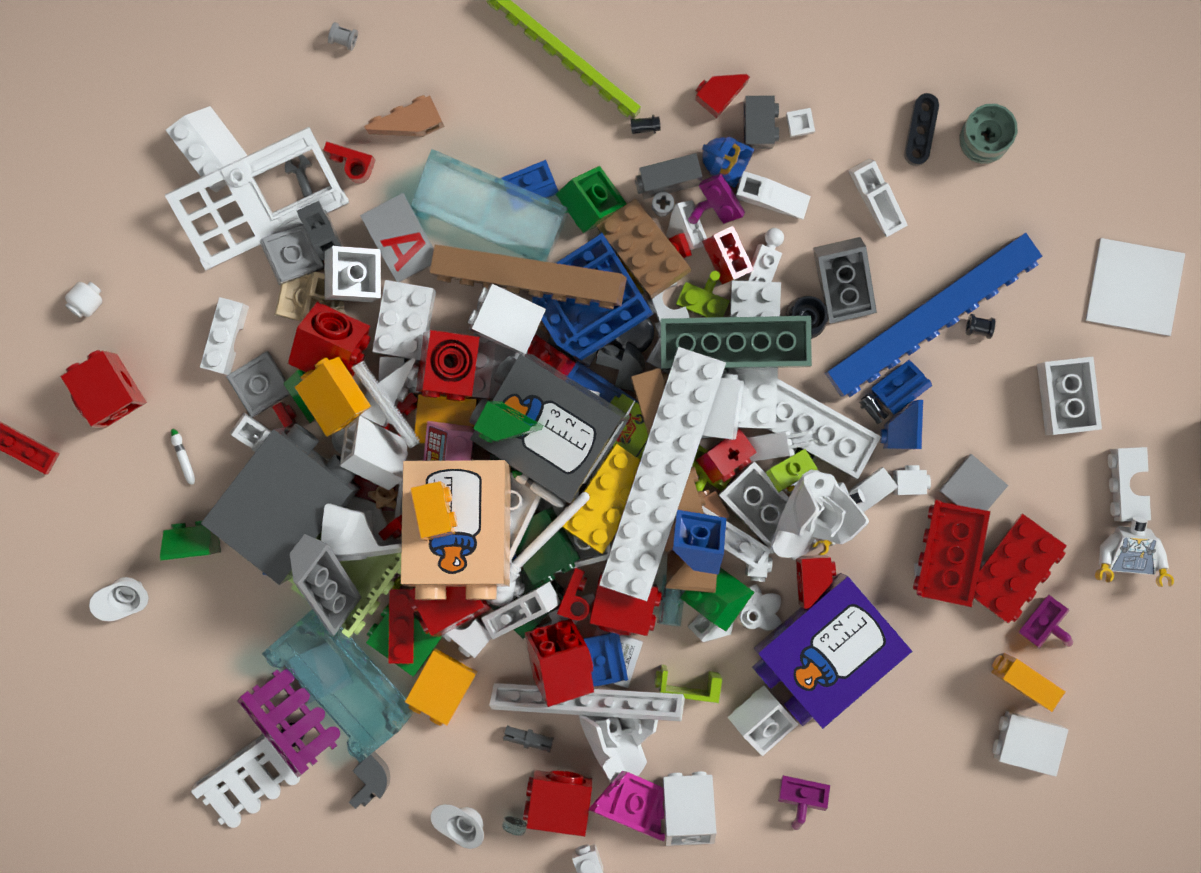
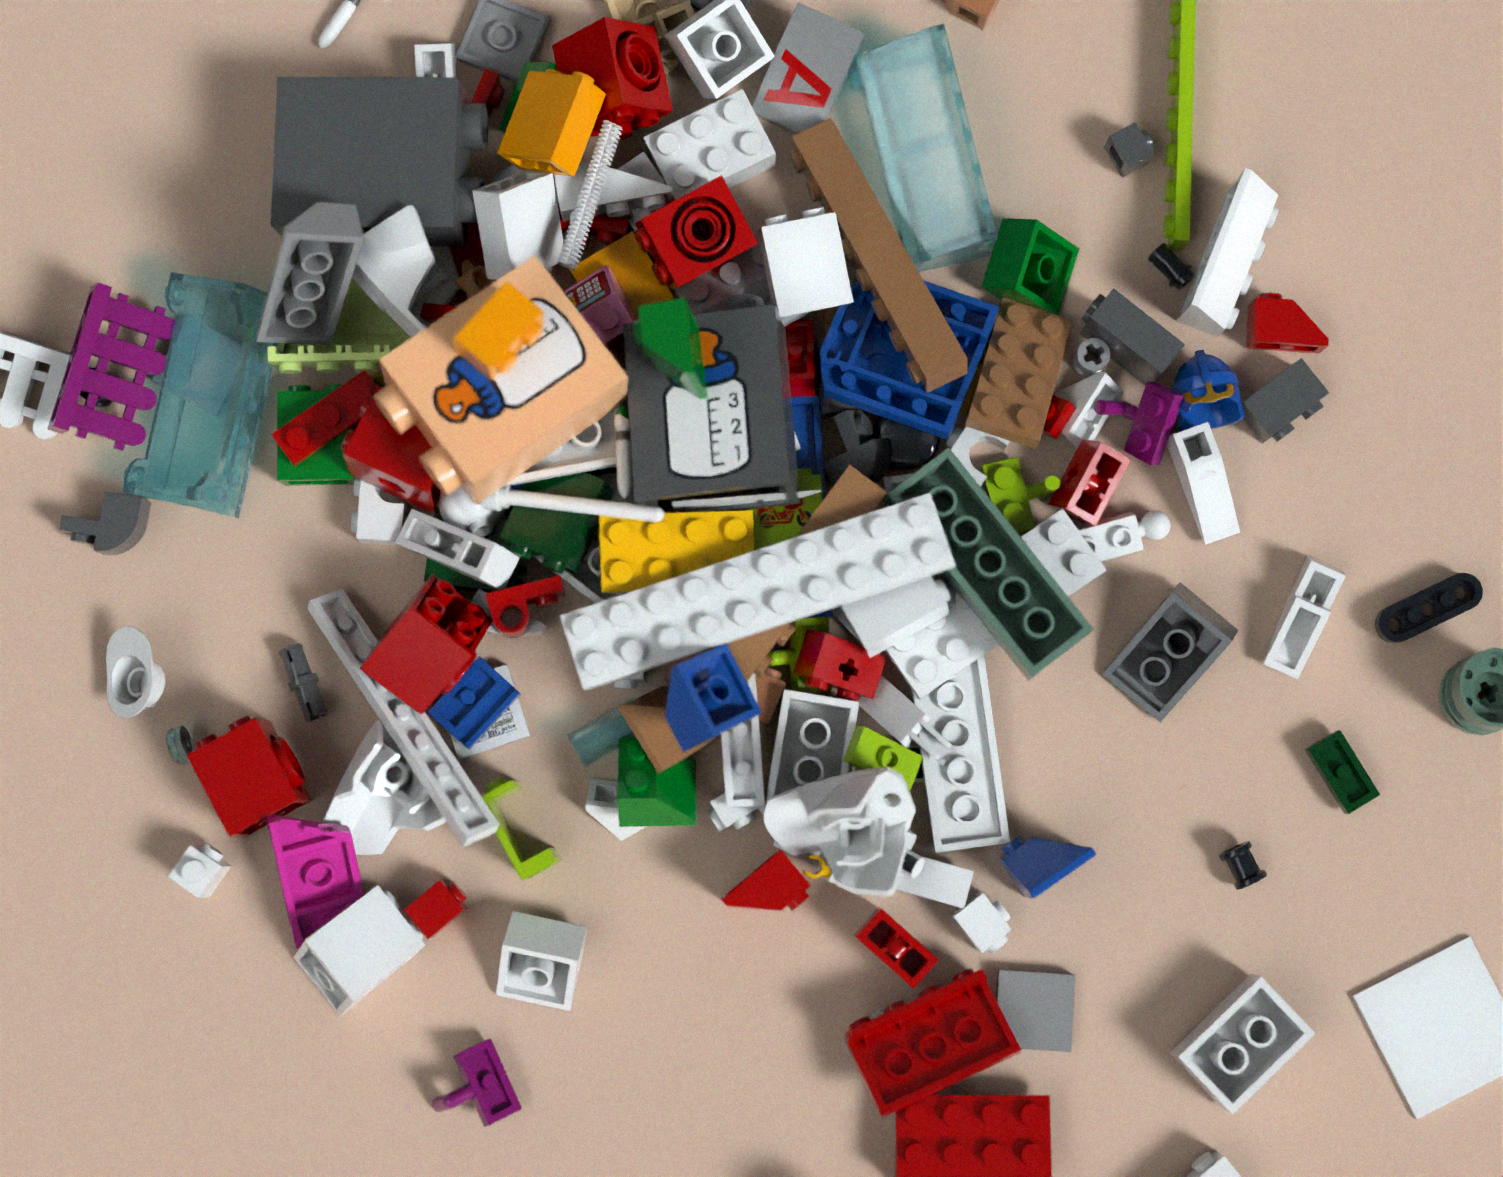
camera: 50 degrees right, 5 degrees down
(119, 600) = (112, 58): white piece -> none
(188, 542) = (243, 88): green slope -> none
(440, 687) = (288, 526): light orange brick -> none
(535, 179) = (1004, 182): blue plate -> none
(567, 98) = (1129, 149): none -> dark grey plate
(624, 613) = (549, 680): red brick -> none
(662, 90) = (1229, 255): none -> white slope
(696, 754) = (437, 907): none -> red brick
(764, 608) = (685, 855): white plate -> none
(800, 122) = (1320, 452): white plate -> none
(811, 307) = (1098, 647): black piece -> none
(830, 653) = (689, 979): dark purple brick -> none
(872, 406) = (1039, 804): black pin -> none
(891, 535) = (896, 947): none -> red brick
(901, 387) = (1091, 821): blue plate -> none
(934, 314) = (1213, 795): blue brick -> none
(971, 239) = (1342, 772): none -> dark green plate

